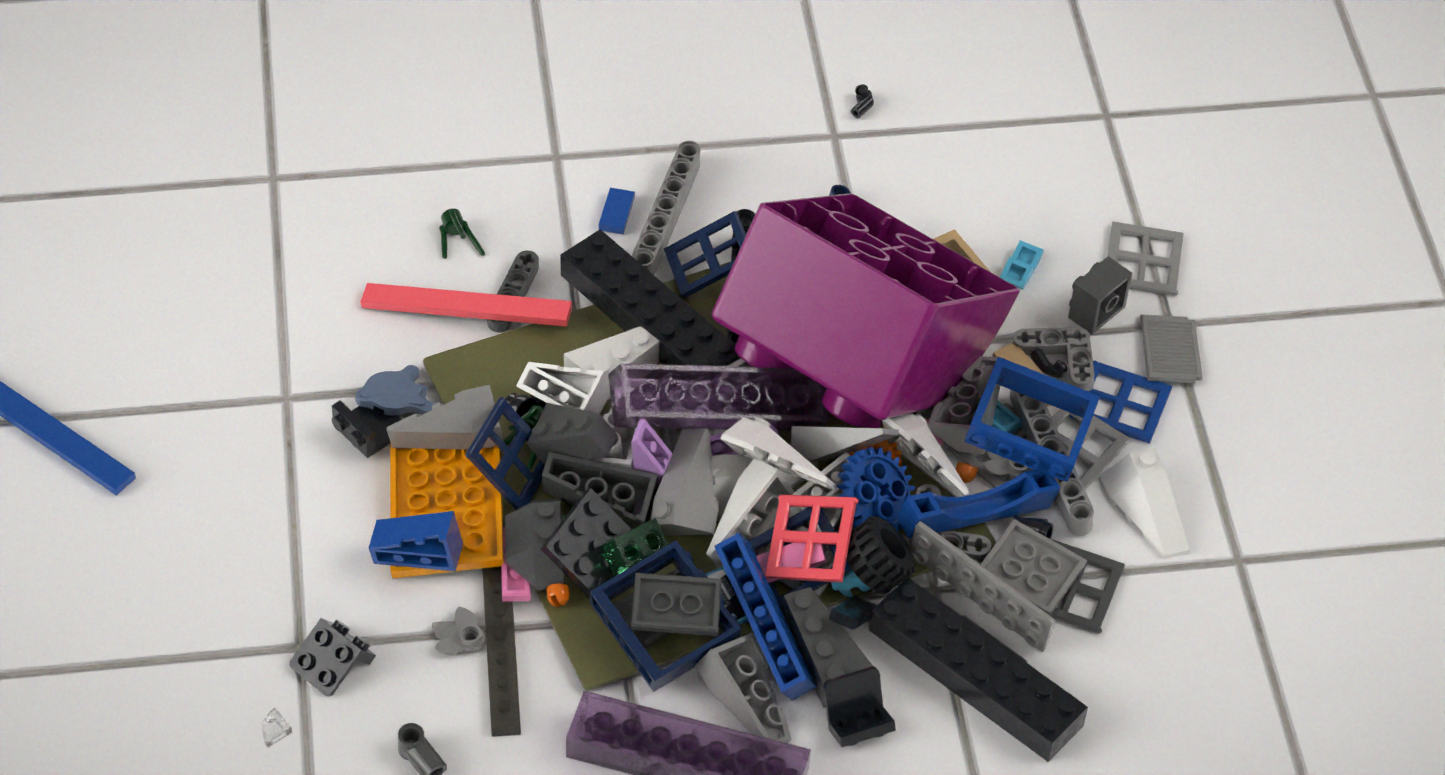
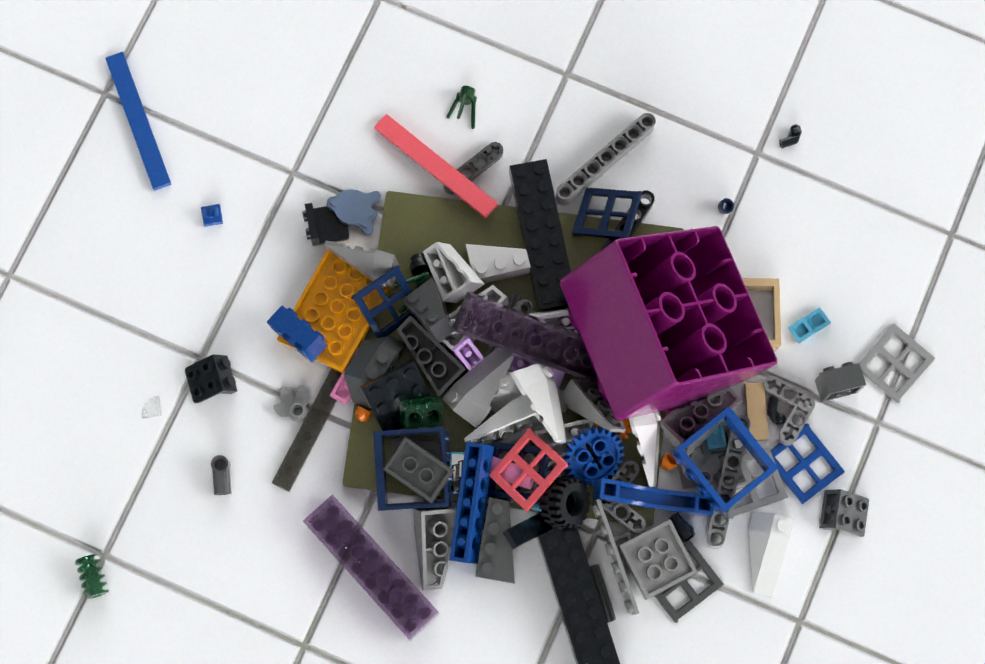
camera: 30 degrees right, 25 degrees up
(212, 484) = (212, 215): none -> blue tile
(616, 210) = (576, 140): blue tile -> none
(856, 707) = (488, 597): black bracket -> none
(1171, 349) = (864, 443): light grey window -> none
(1200, 419) = (844, 512): none -> dark grey bracket

